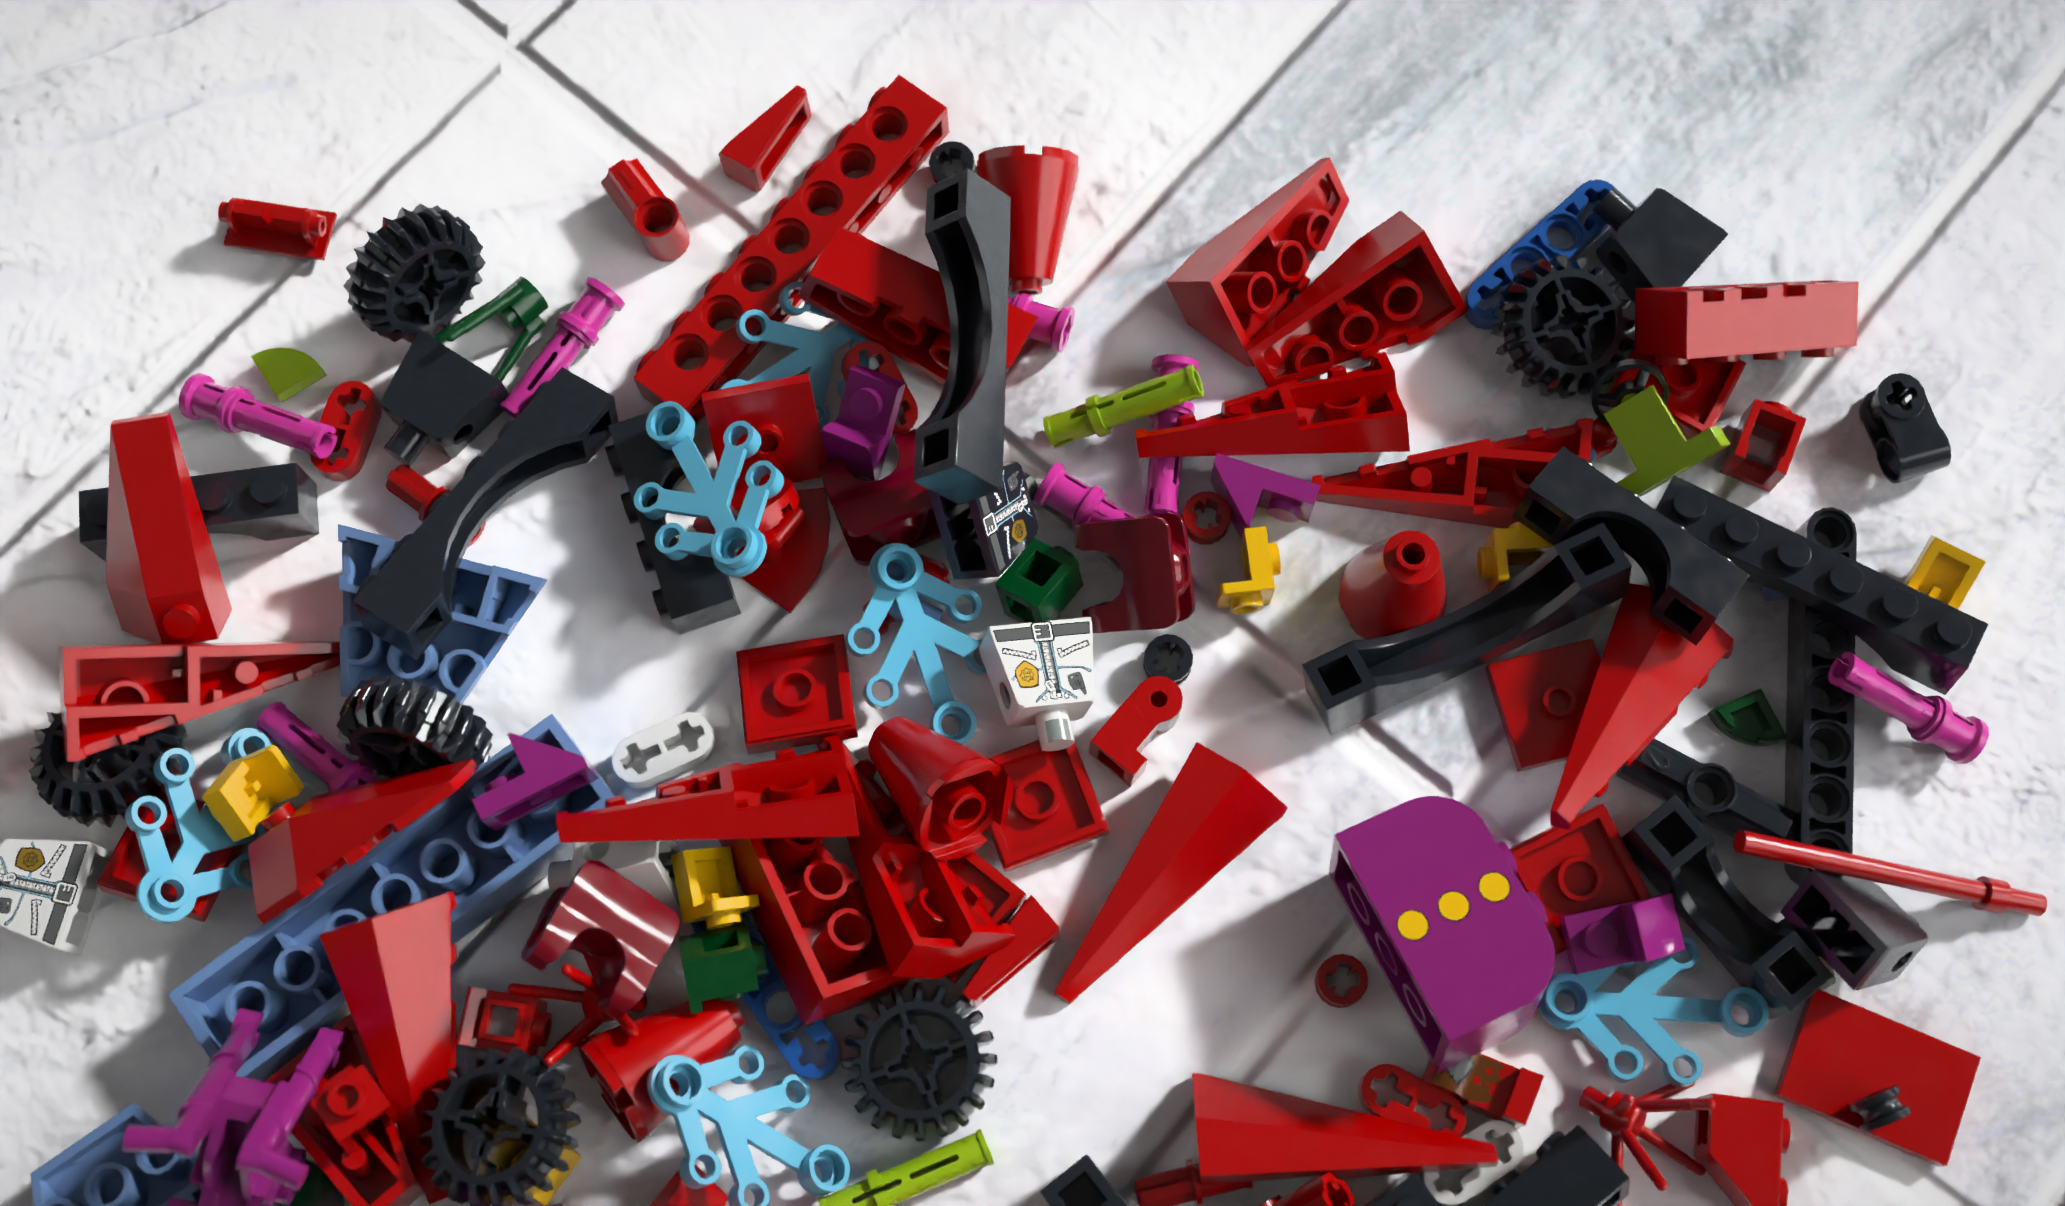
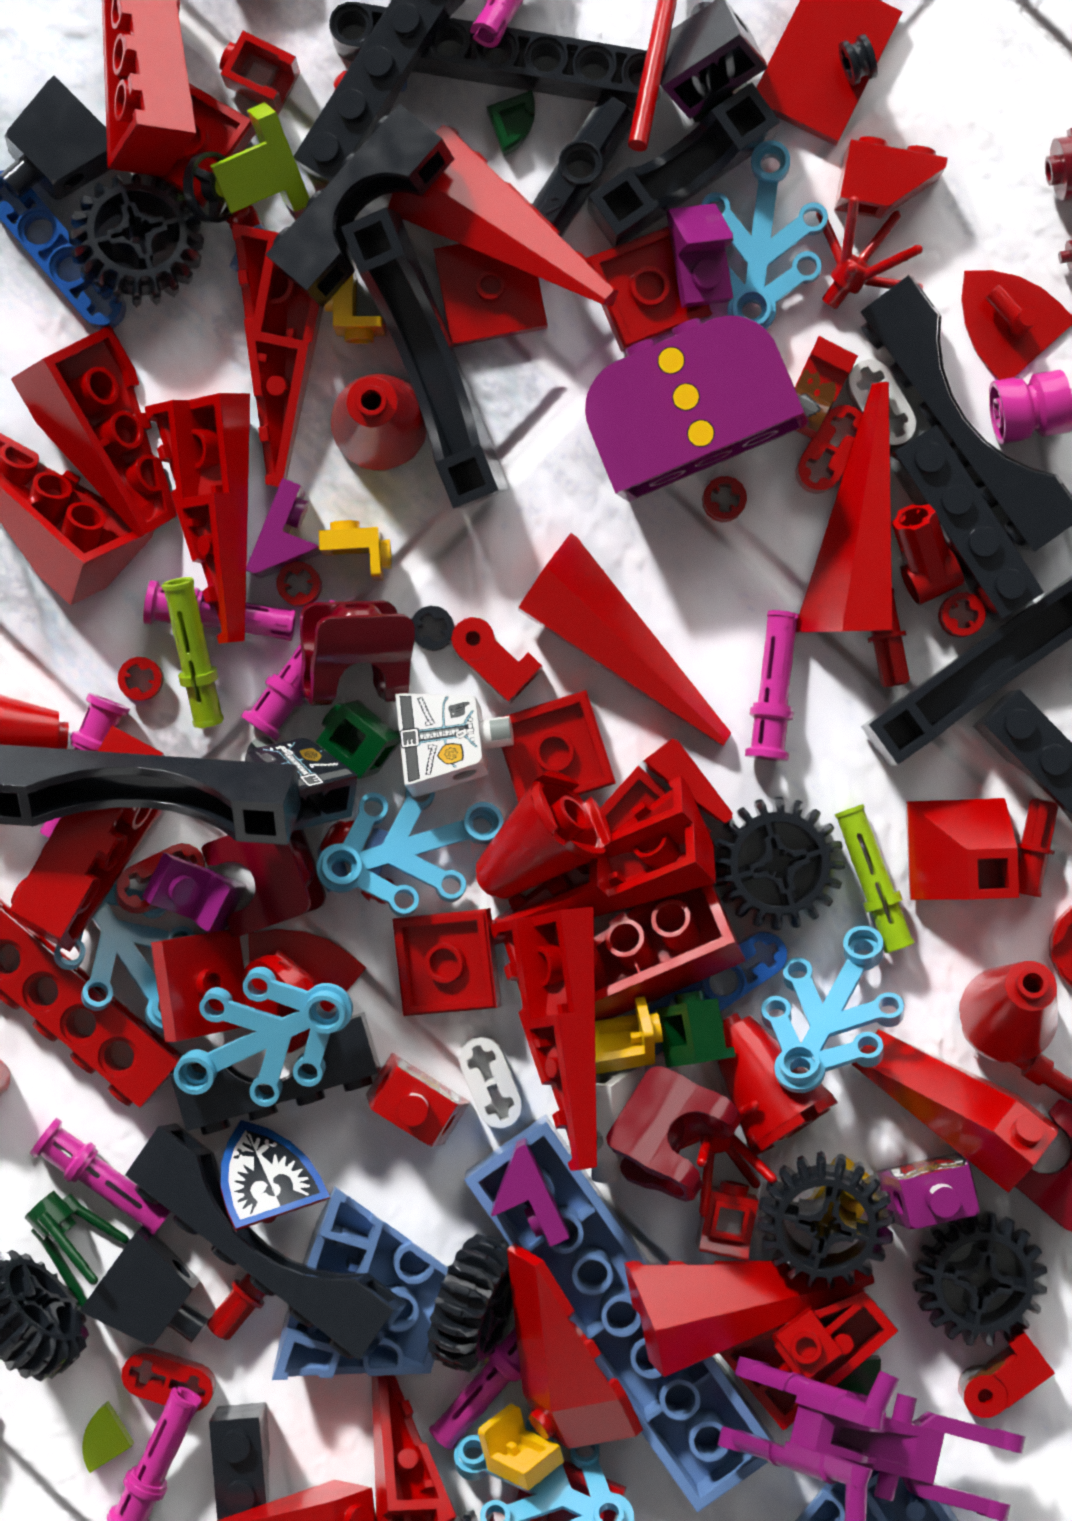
camera: 90 degrees left, 15 degrees up
(558, 510) = (266, 1177): none -> shield
(639, 666) = (415, 1101): none -> red torso
(1098, 346) = (144, 664): none -> red bush
(1098, 1047) = (772, 709): none -> dark pink pin

